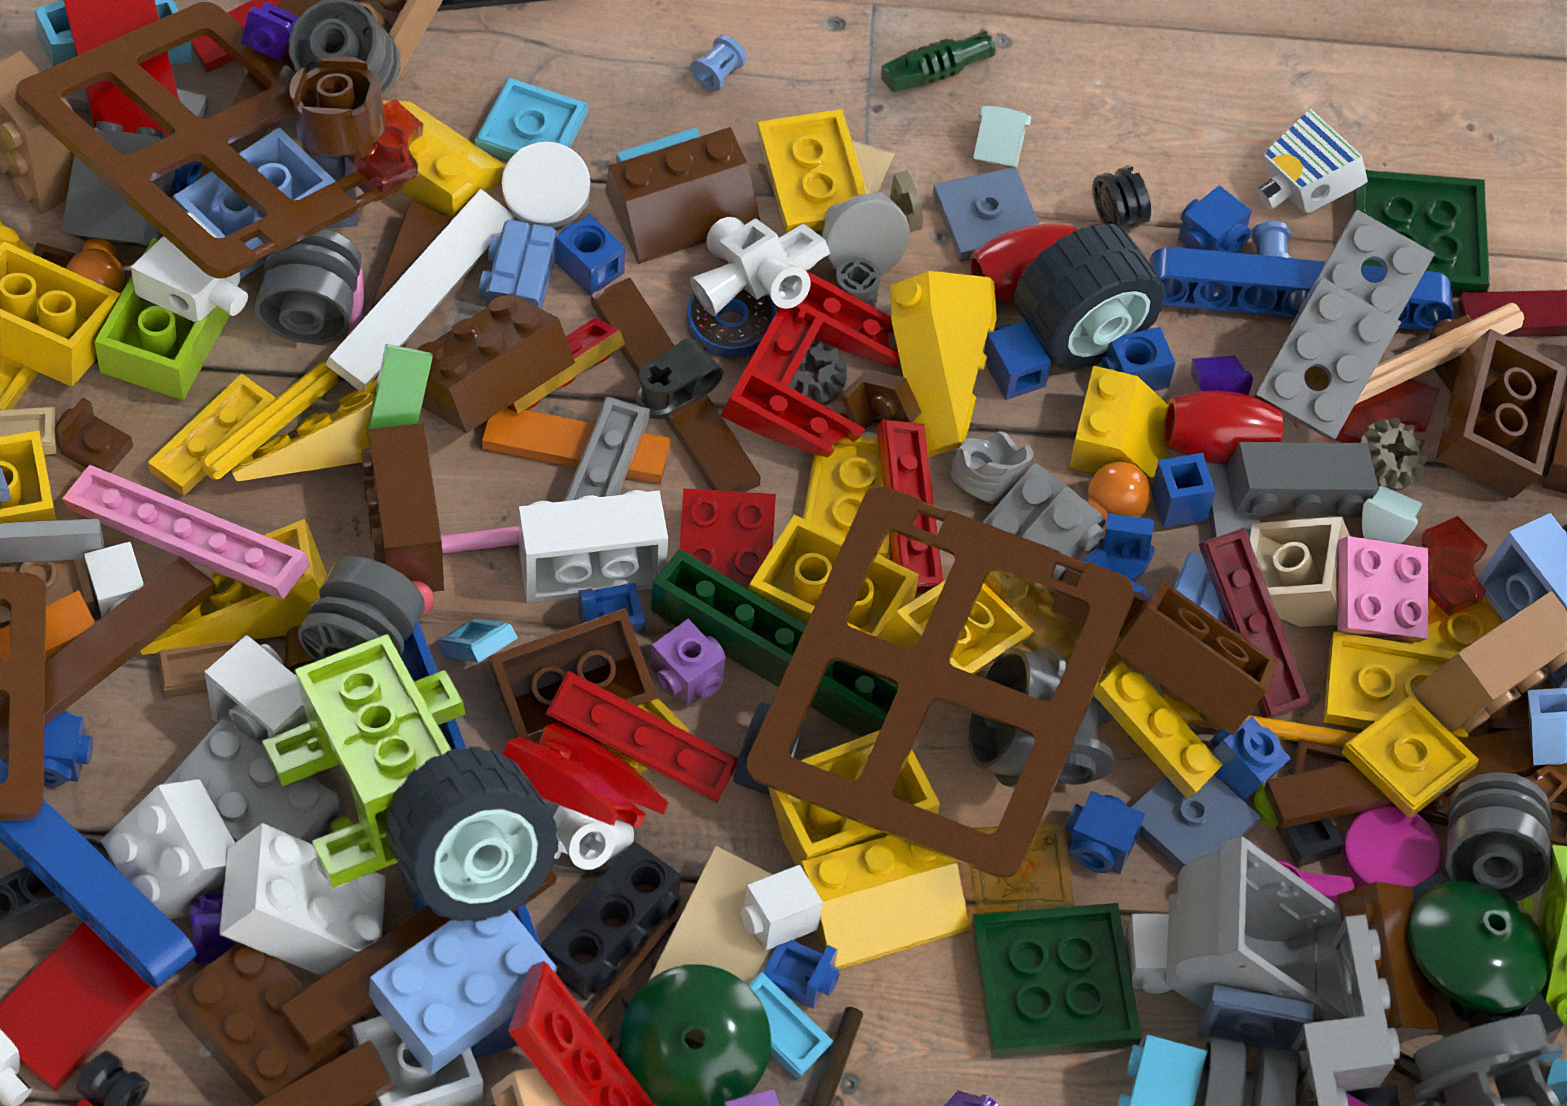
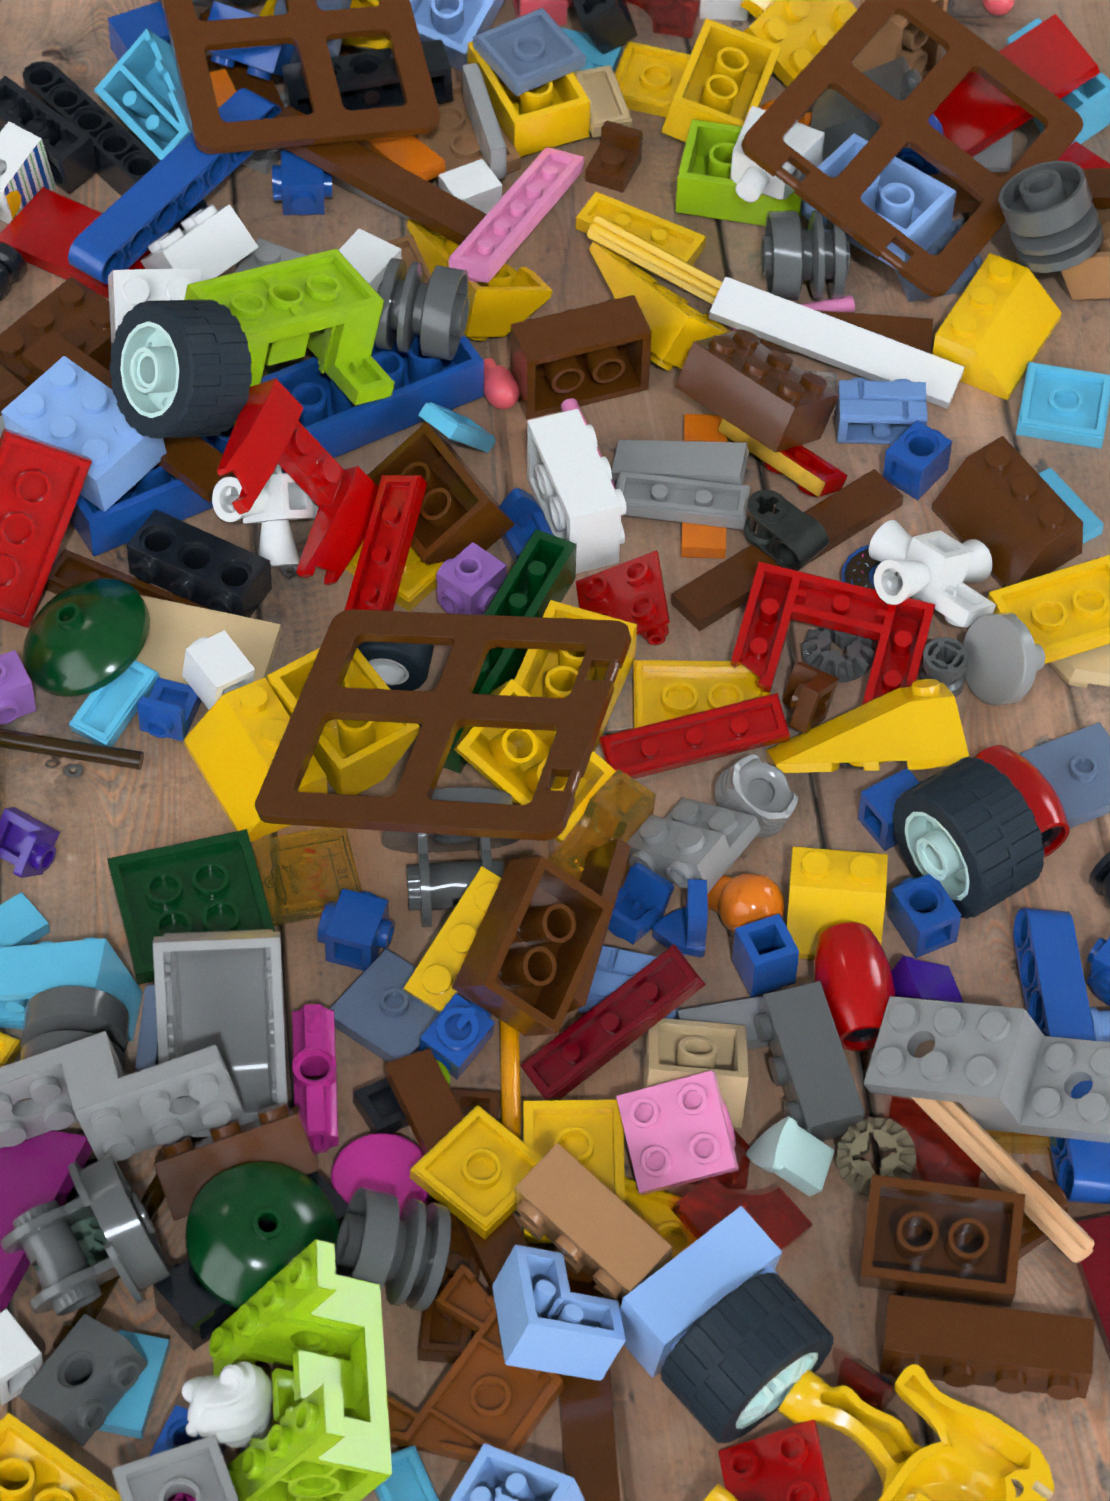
camera: 85 degrees right, 5 degrees down
(269, 30) = (1046, 148): dark purple bracket -> none
(338, 107) = (966, 202): reddish brown brick -> none
(391, 159) = (945, 266): clear red tile -> none
(399, 387) = (683, 312): bright green tile -> none
(546, 184) = (985, 411): white tile -> none
(558, 447) = (683, 459): none -> light grey tile
(906, 198) = (1071, 702): dark tan tile -> none

